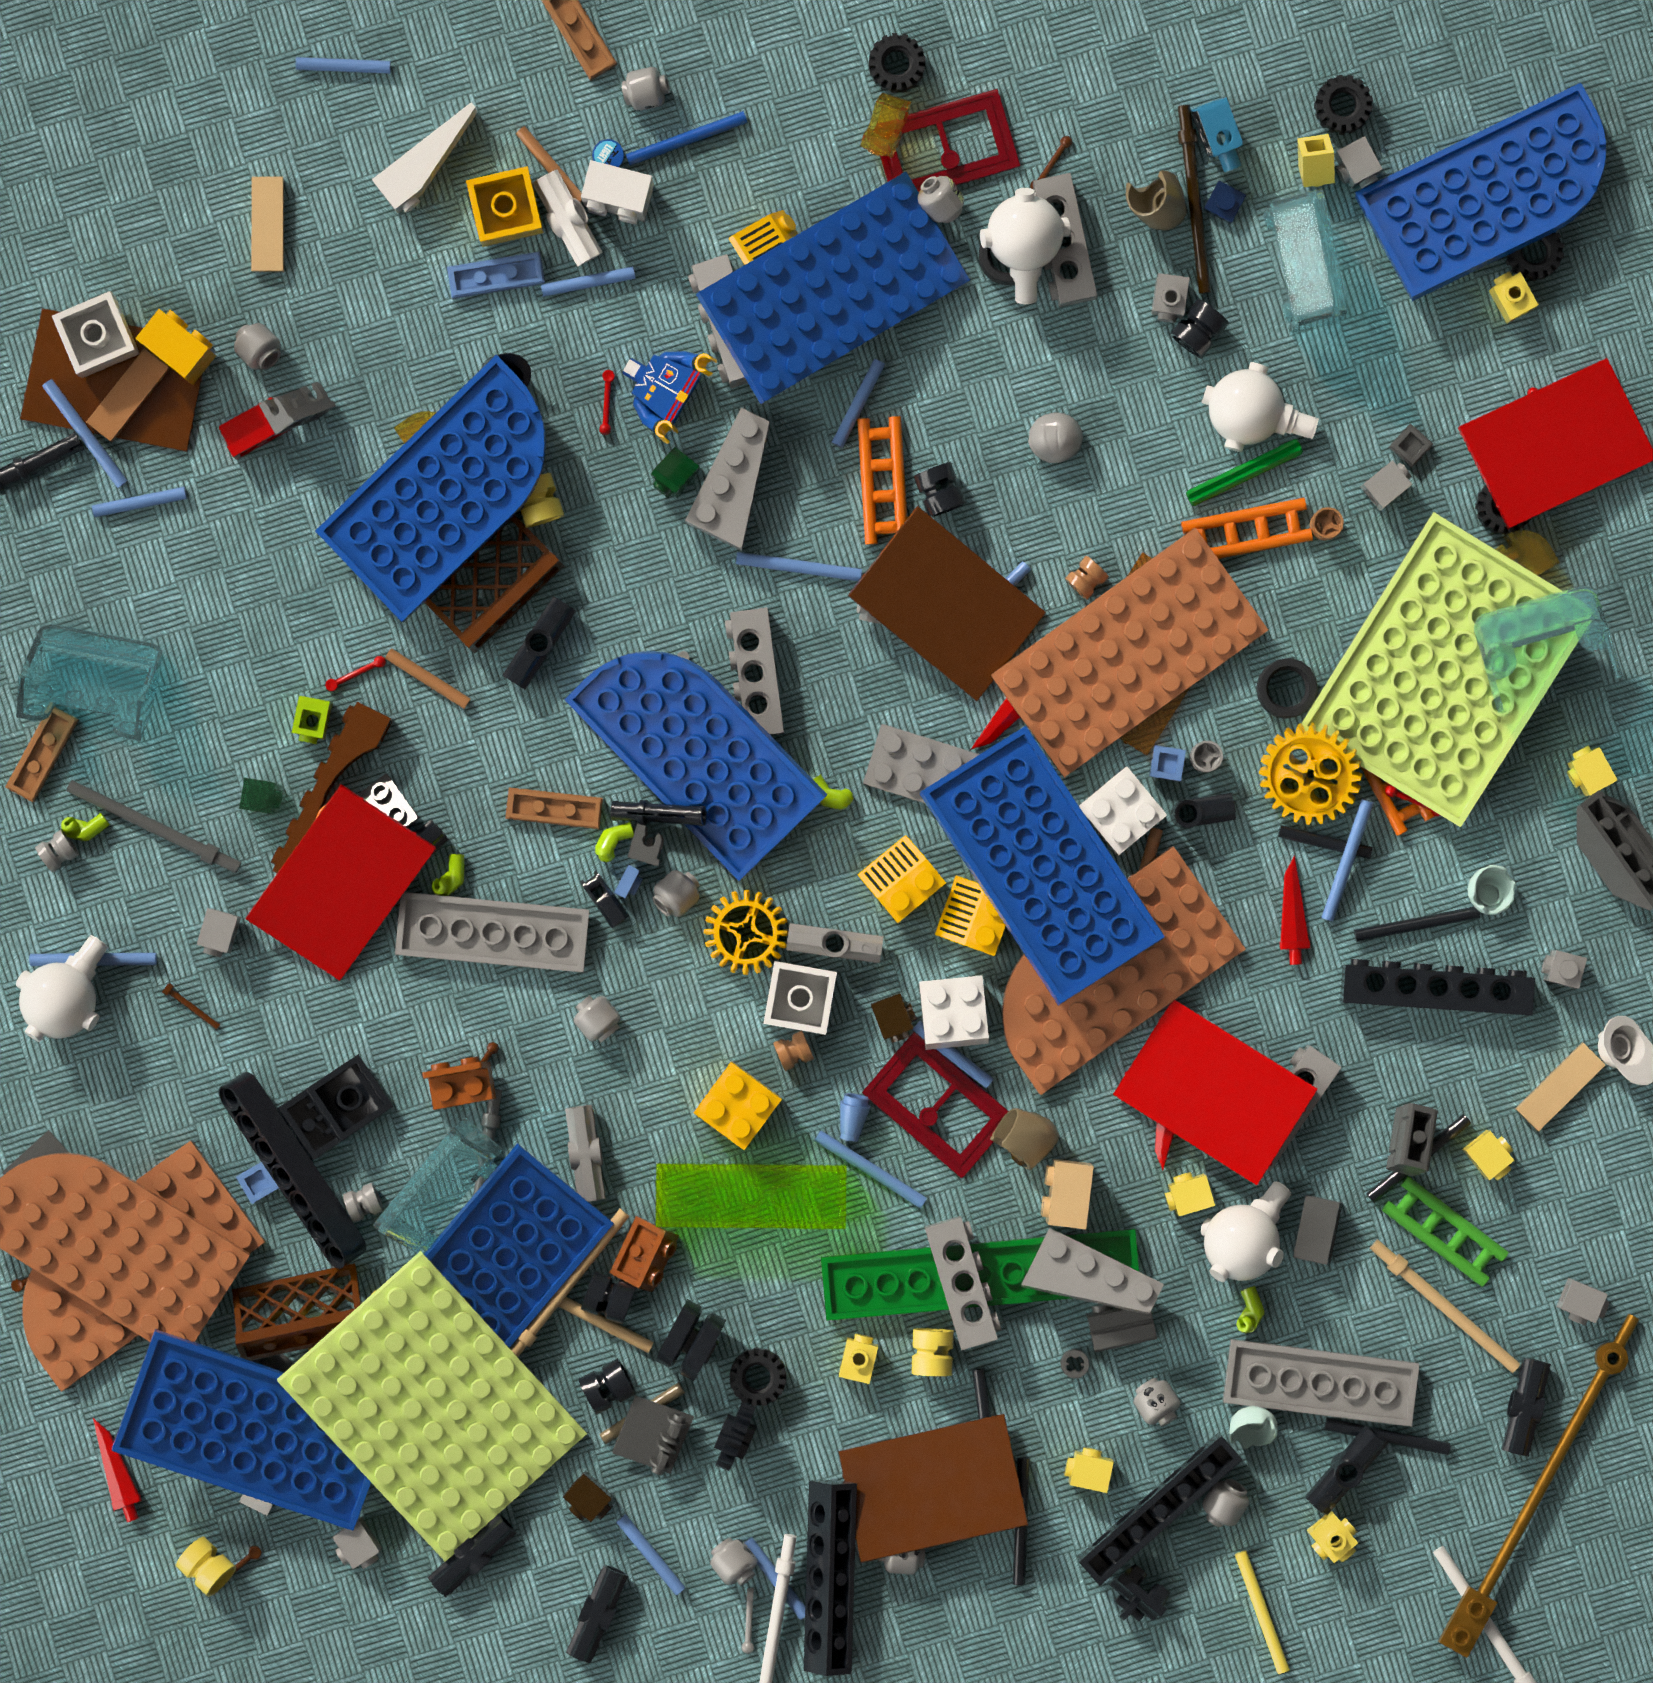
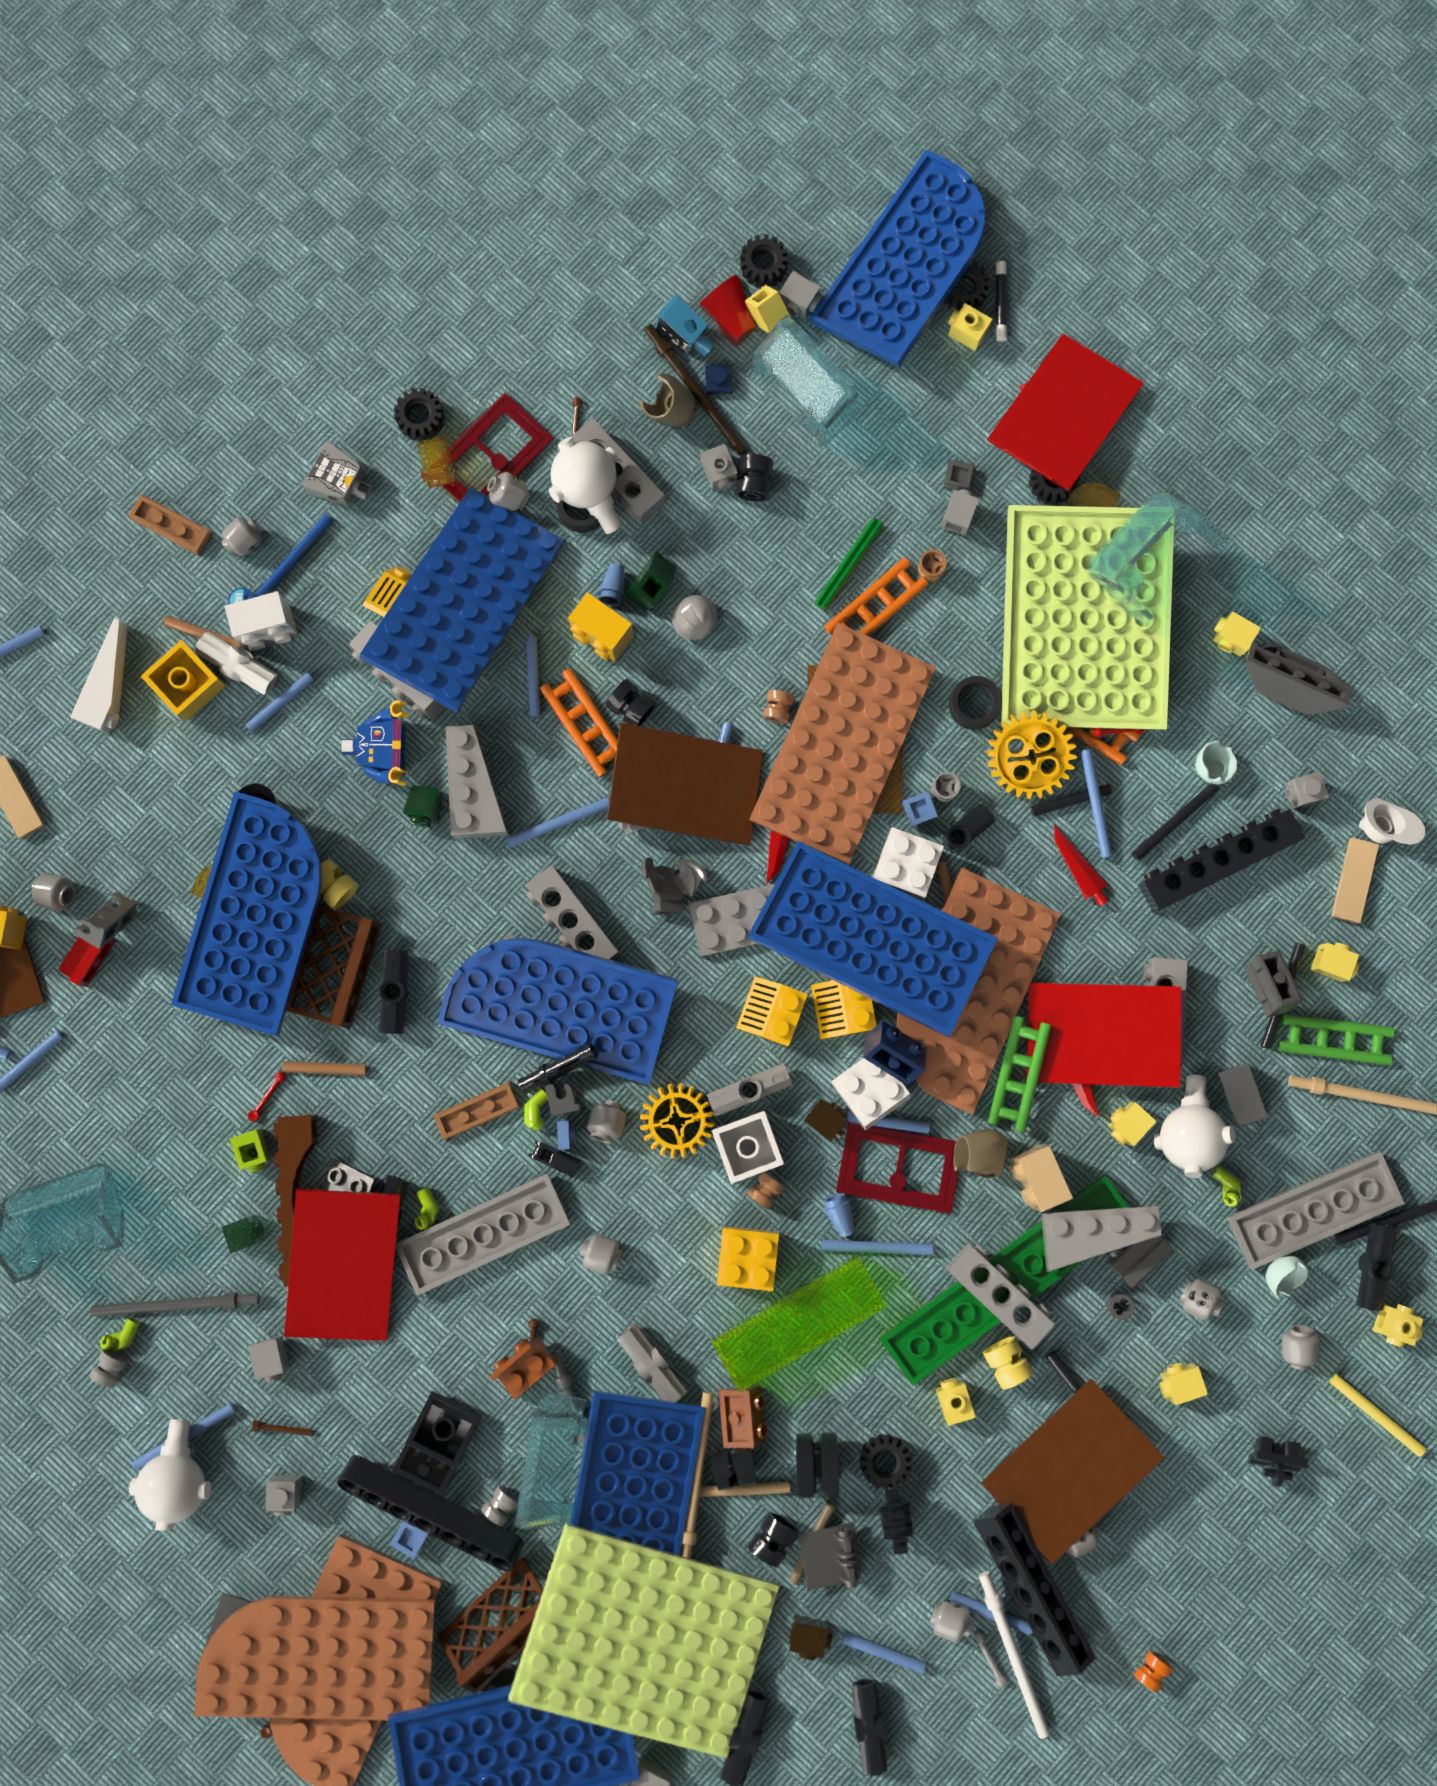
camera: 35 degrees left, 5 degrees down
(42, 754) = (57, 1298): medium nougat tile -> none
(160, 1070) = (283, 1494): none -> light grey brick
(496, 275) = (207, 737): medium blue tile -> none
(608, 376) = (335, 764): red hinge -> none
(776, 82) = (336, 477): none -> torso
(835, 798) = (686, 979): lime arm -> none
(870, 698) = (669, 888): none -> dark grey animal
(953, 395) = (600, 627): none -> yellow brick
(992, 356) = (613, 585): none -> medium blue cone
(997, 990) = (895, 1052): none -> dark blue brick
(1020, 1534) = (1160, 1469): black piece -> none
(1034, 376) = (652, 582): none -> dark green slope
(1107, 1101) = (1005, 1084): none -> bright green bar
(1159, 1508) = (1254, 1383): black brick -> none
(1250, 408) = (825, 514): white piece -> none
(1277, 135) = (729, 310): none -> red slope
(1564, 287) = (1001, 301): none -> black bar

